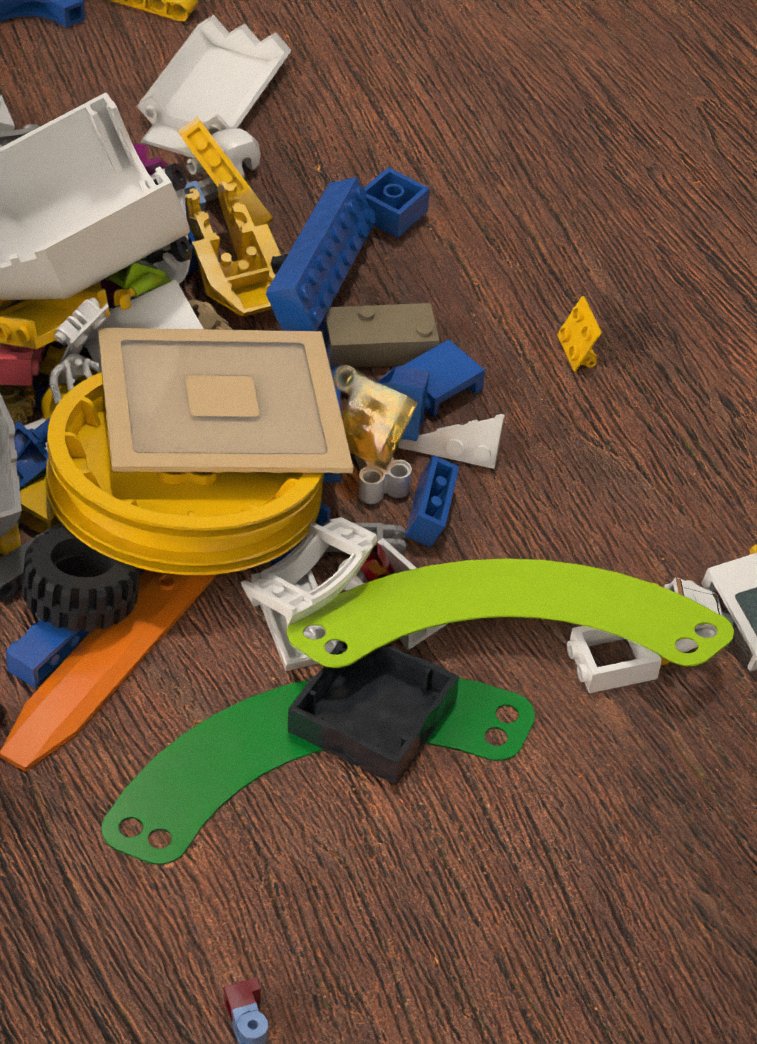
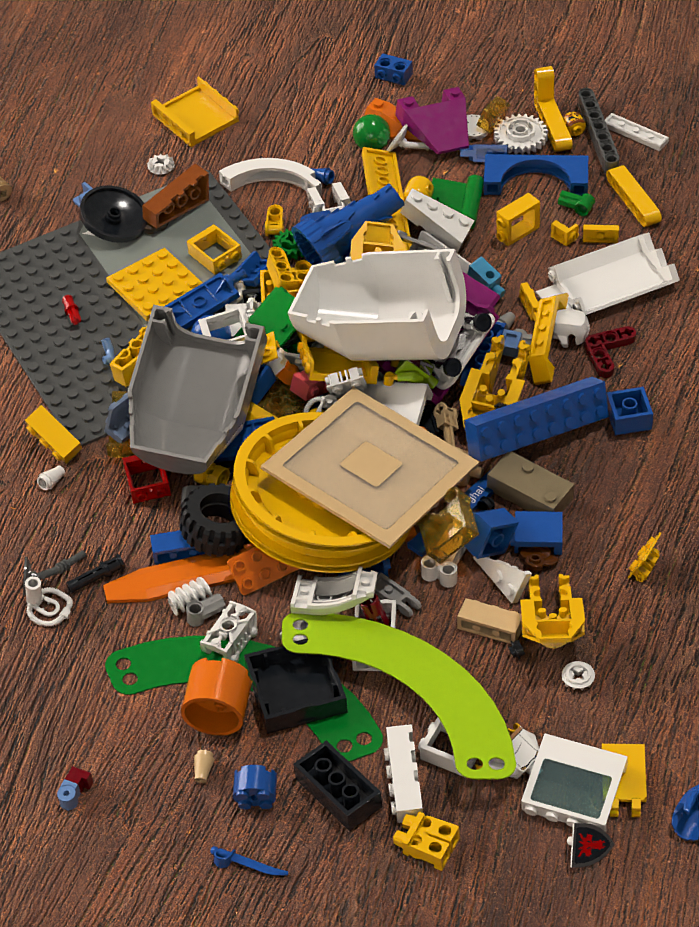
camera: 50 degrees right, 0 degrees up
(49, 72) = (526, 206): none -> yellow window
(93, 26) = (581, 204): none -> green piece
(109, 65) = (563, 233): none -> yellow bracket
(131, 691) = (188, 593): none -> white piece
(148, 46) = (601, 233): none -> yellow panel
(162, 150) = (529, 300): none -> yellow hinge
(165, 695) = (199, 610): none -> light grey piece
(178, 604) = (255, 569): none -> orange bracket
(214, 700) = (238, 635): none -> white piece
(293, 136) = (598, 344): none -> dark red beam
(316, 776) = (216, 696): none -> orange brick
(371, 871) = (202, 764): none -> tan cone
(432, 501) = (447, 597): blue brick -> none
(467, 405) = (538, 557): none -> reddish brown plate
(468, 848) = (254, 787): none -> blue brick
(499, 499) = (489, 621): none -> tan brick
(514, 957) = (223, 859): none -> blue sword
(551, 780) = (338, 785): none -> black brick
(557, 510) = (516, 649): none -> black plate
(569, 445) = (552, 630): none -> yellow connector
(606, 716) = (402, 772): none -> white wedge
(657, 493) = (578, 668): none -> white gear
(706, 767) = (427, 839): none -> yellow hips

